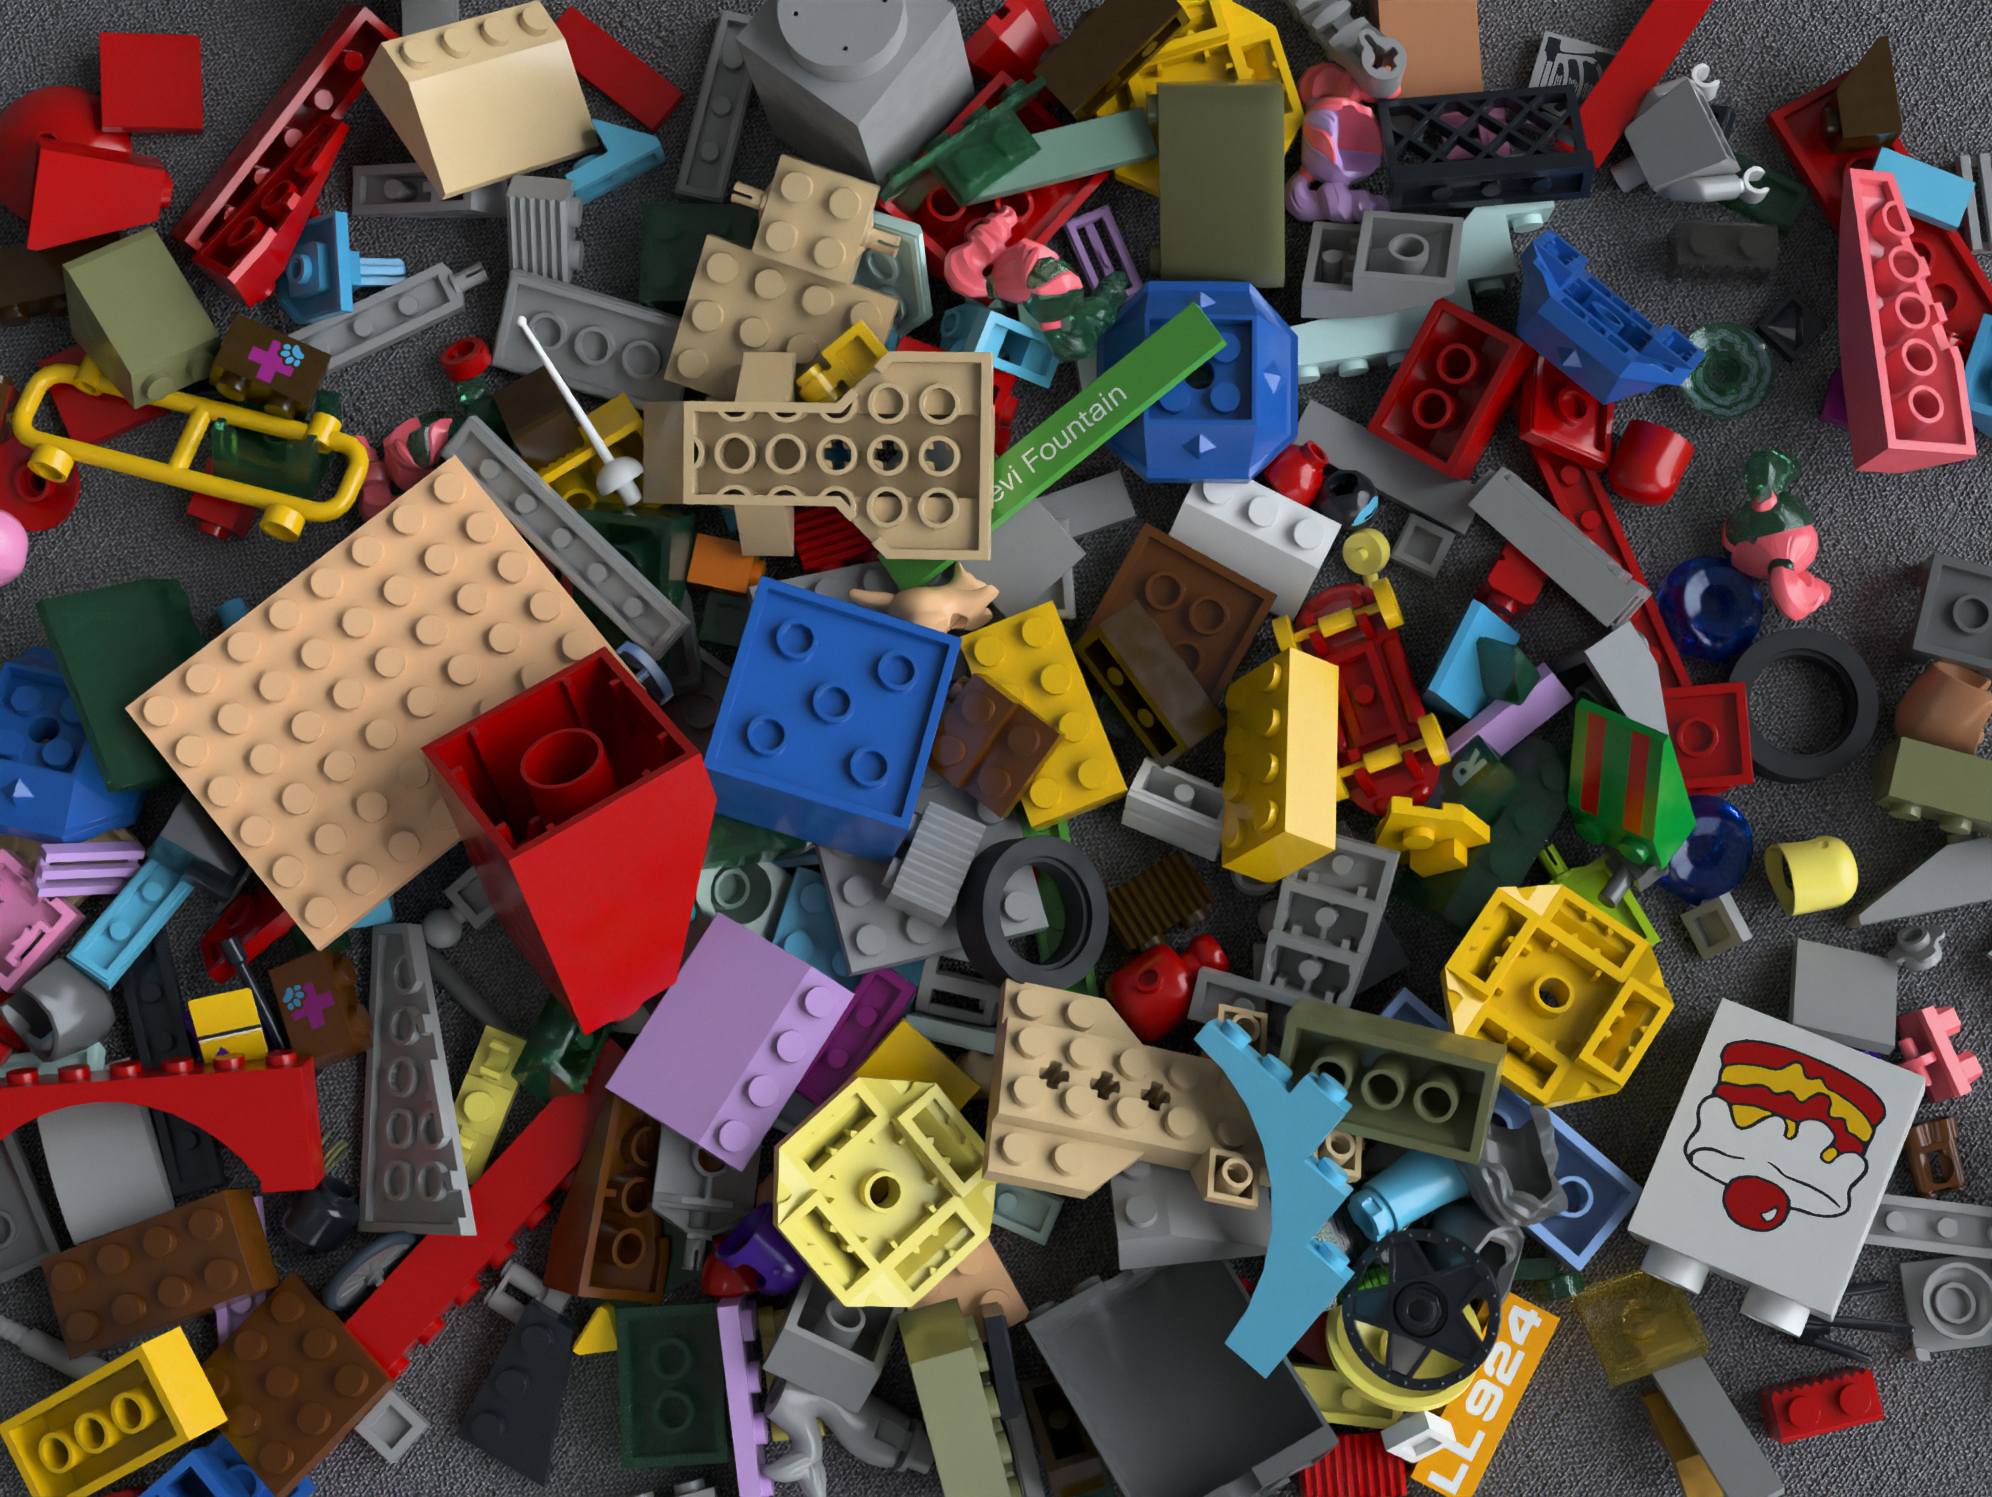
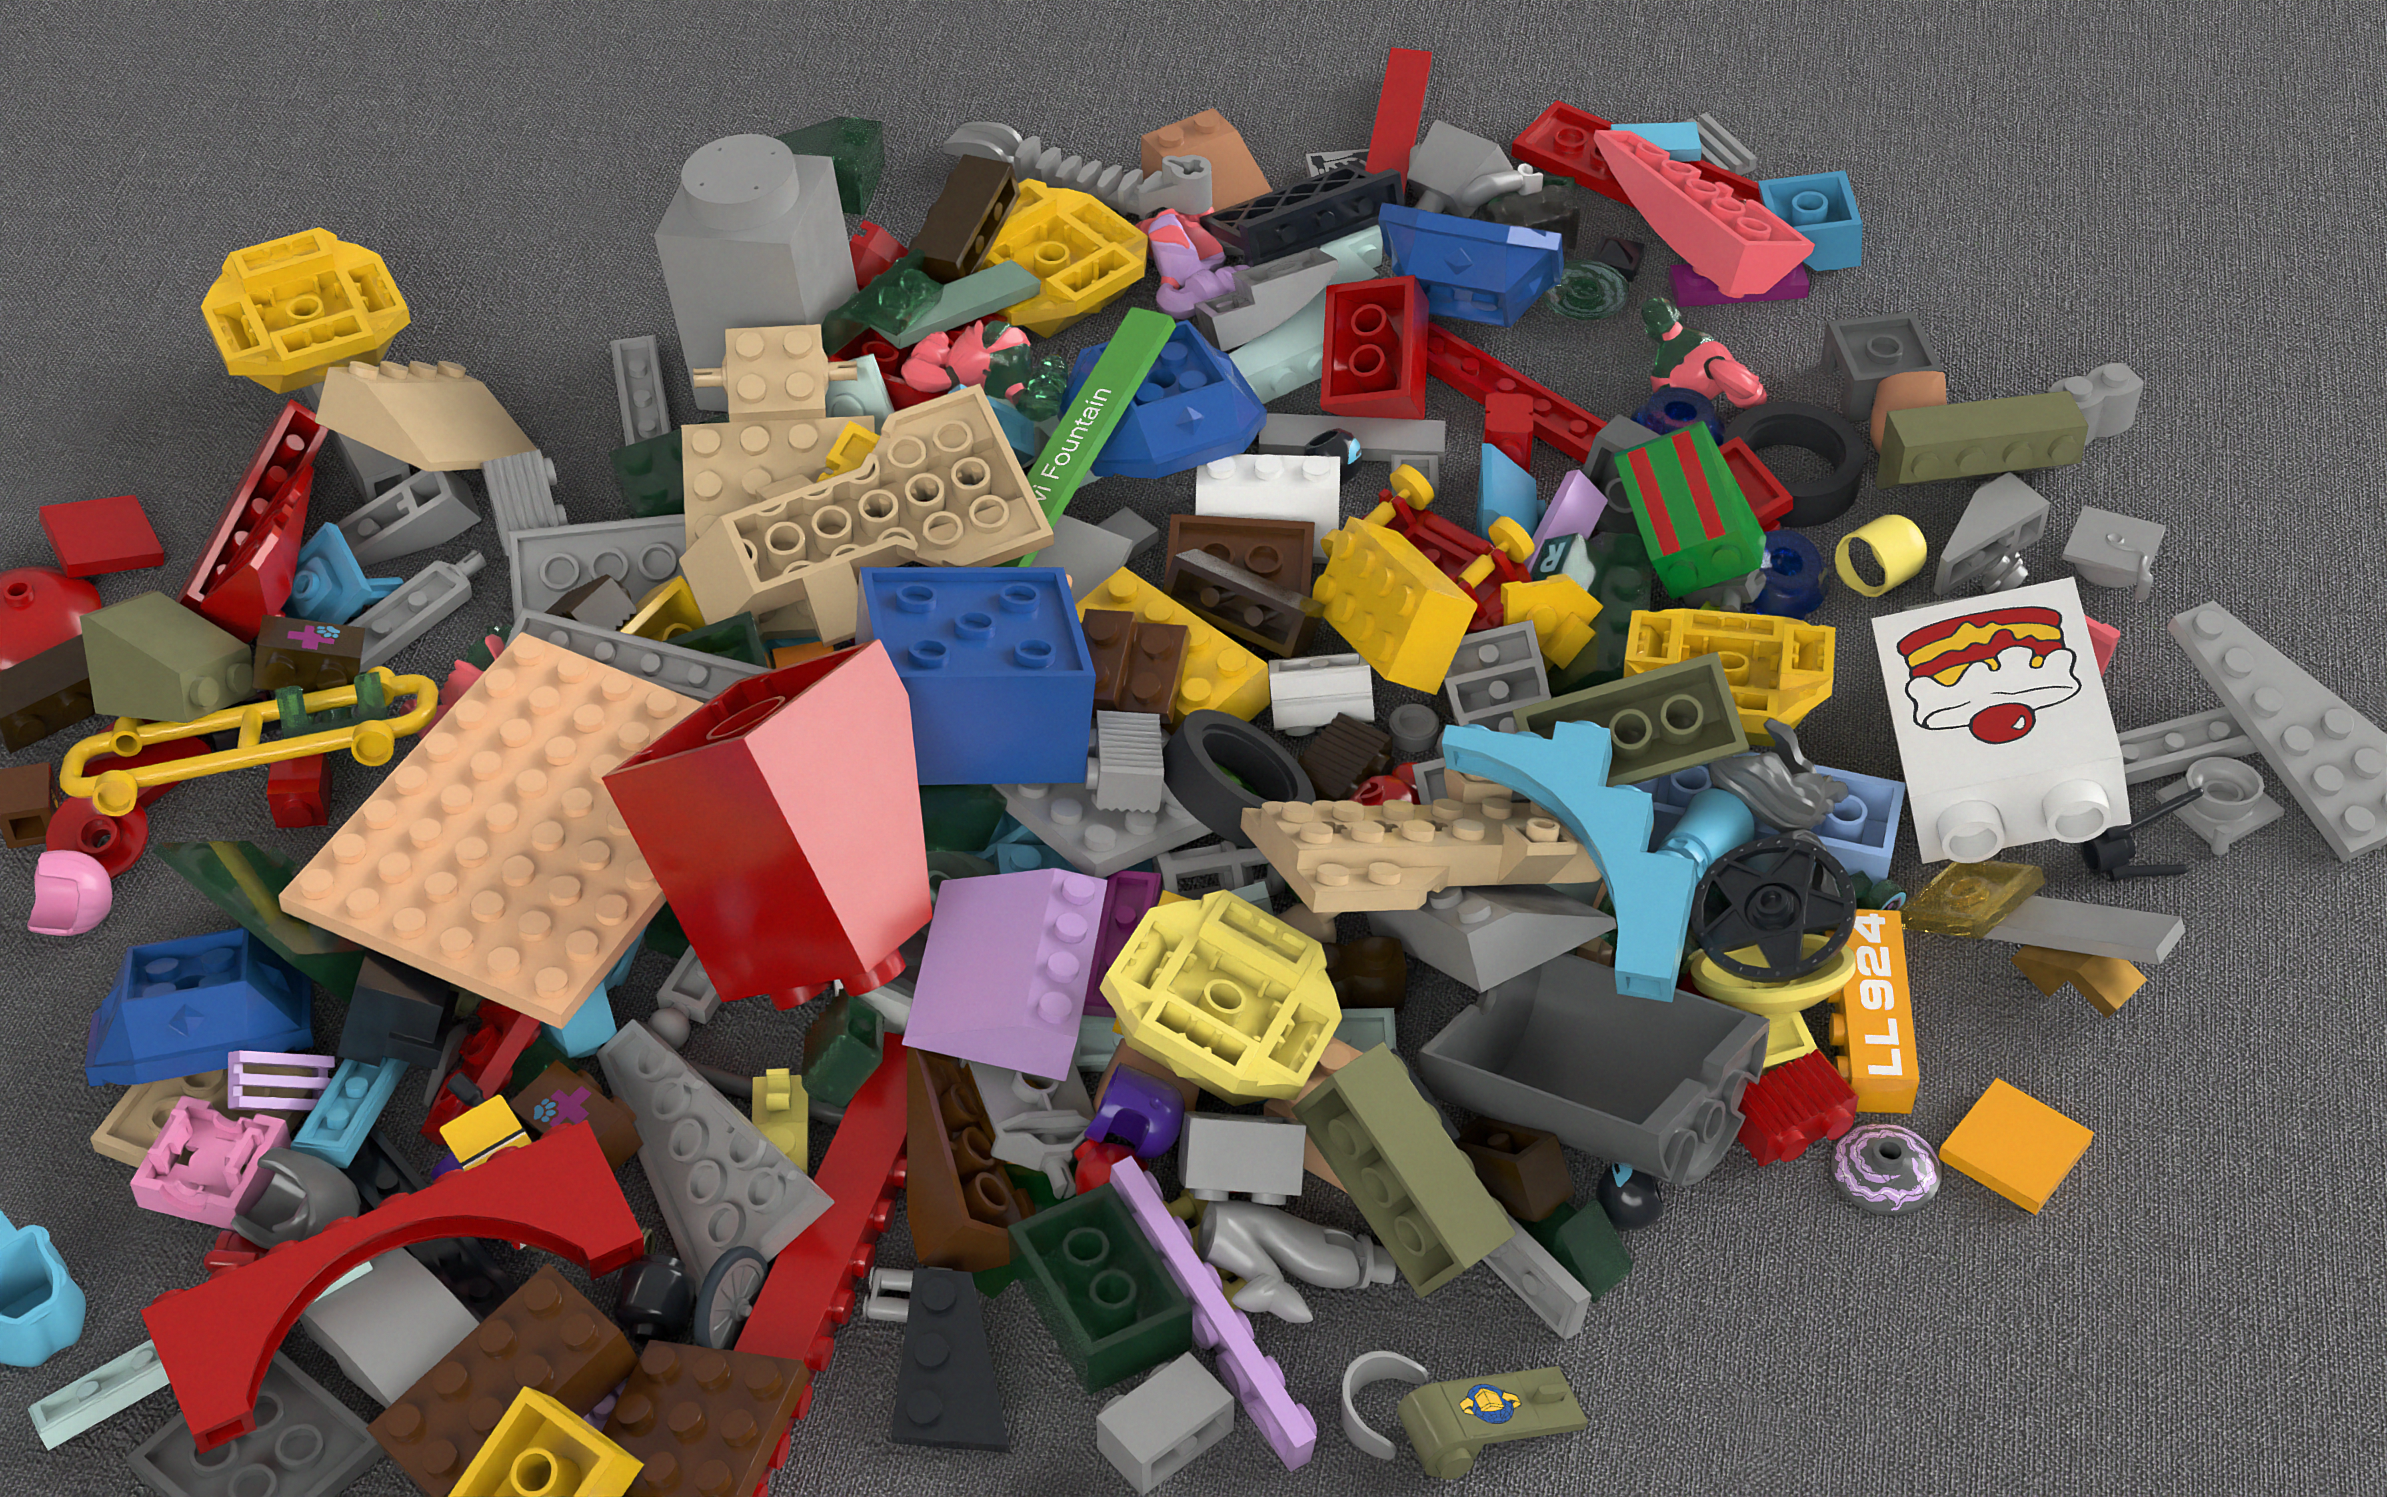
camera: 30 degrees left, 35 degrees down
(91, 192) = (72, 577): red slope -> none
(392, 1426) = (819, 1455): light grey plate -> none
(465, 359) = (489, 619): red tile -> none
(599, 1332) = (1002, 1285): yellow slope -> none
(617, 472) = (675, 621): white sword -> none
(618, 72) = (548, 409): red tile -> none
(627, 157) = (572, 444): medium azure slope -> none
(1220, 181) = (1100, 262): olive windscreen -> none
(1298, 472) = (1278, 440): red brick -> none
(1366, 553) = (1367, 484): light yellow piece -> none
(1418, 1436) = (1837, 1028): white plate -> none
(1505, 671) = (1538, 483): slope -> none
(1557, 547) = (1565, 402): light grey door -> none
(1565, 417) = (1478, 341): red tile -> none
(1648, 463) = (1564, 353): red helmet -> none
(1716, 926) = (1835, 611): light grey plate -> none
(1820, 1404) = (2177, 885): red brick -> none
(1865, 105) = (1581, 103): dark brown slope -> none
(1934, 1135) = (2120, 693): reddish brown piece -> none

